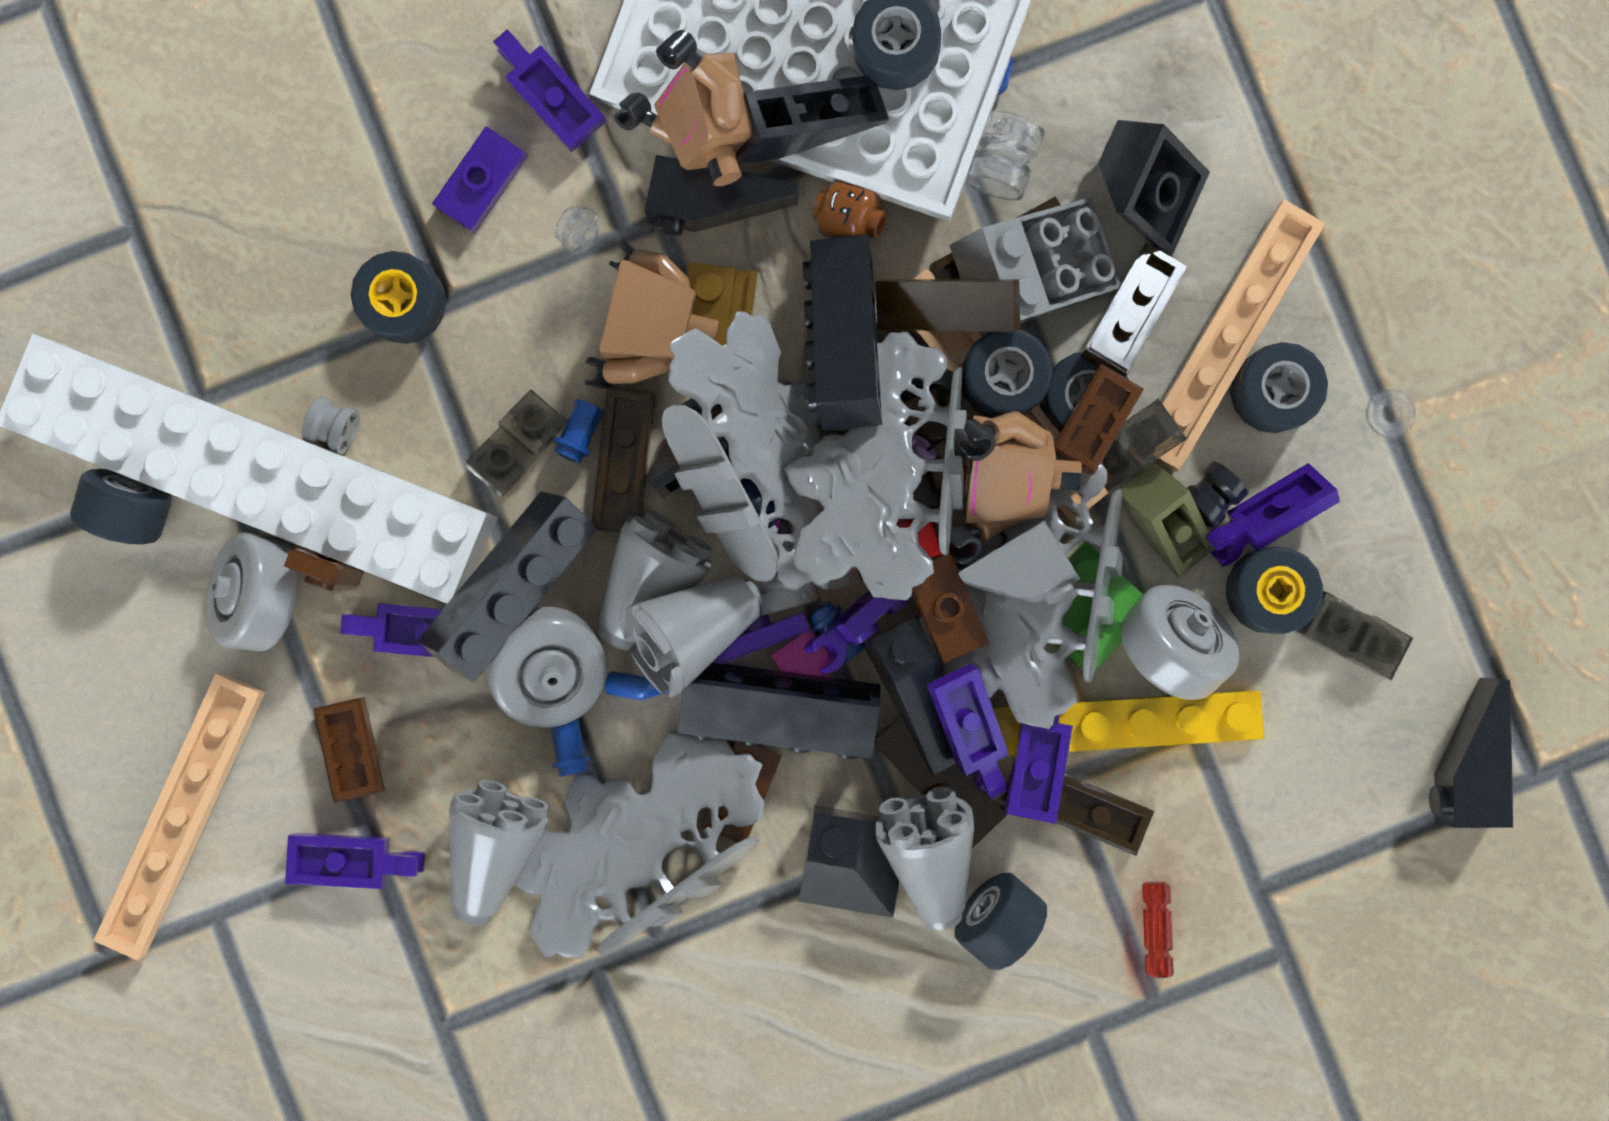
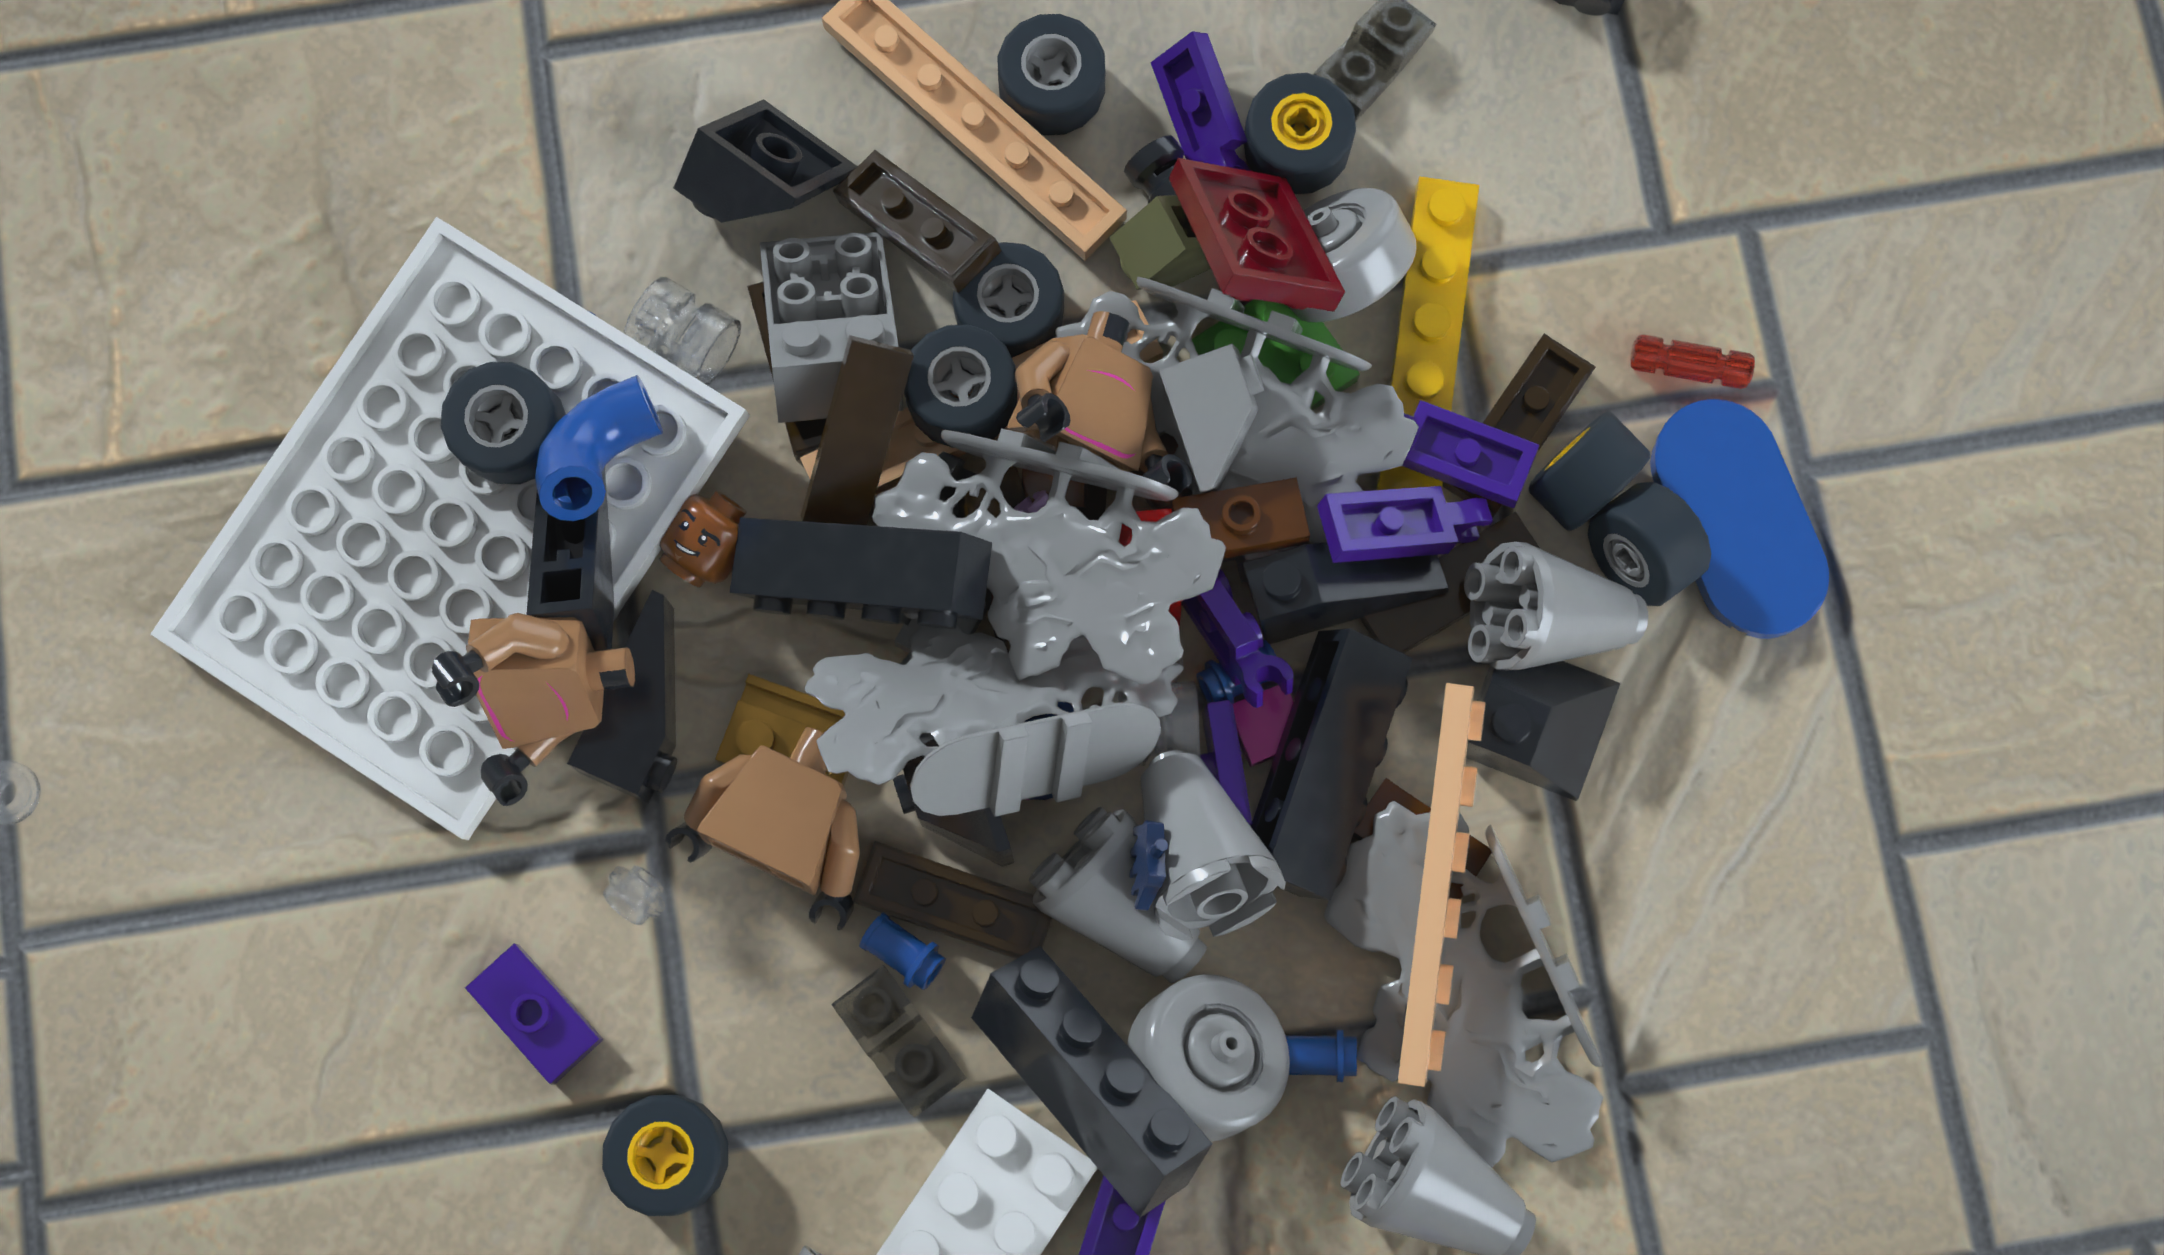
camera: 80 degrees left, 10 degrees down
(550, 92) = (442, 892): dark purple plate -> none
(630, 686) = (1256, 951): blue arm -> none
(663, 593) = (1149, 864): none -> dark blue piece
(724, 810) = (1437, 912): none -> light nougat plate
(890, 101) = (585, 441): none -> blue cylinder
(1048, 866) = (1589, 471): none -> black wheel
(1061, 980) = (1765, 555): none -> blue tile
(1097, 419) = (1042, 284): reddish brown plate -> none
(1141, 442) = (1081, 250): clear smoke slope -> none
(1172, 572) = (1256, 236): none -> dark red plate

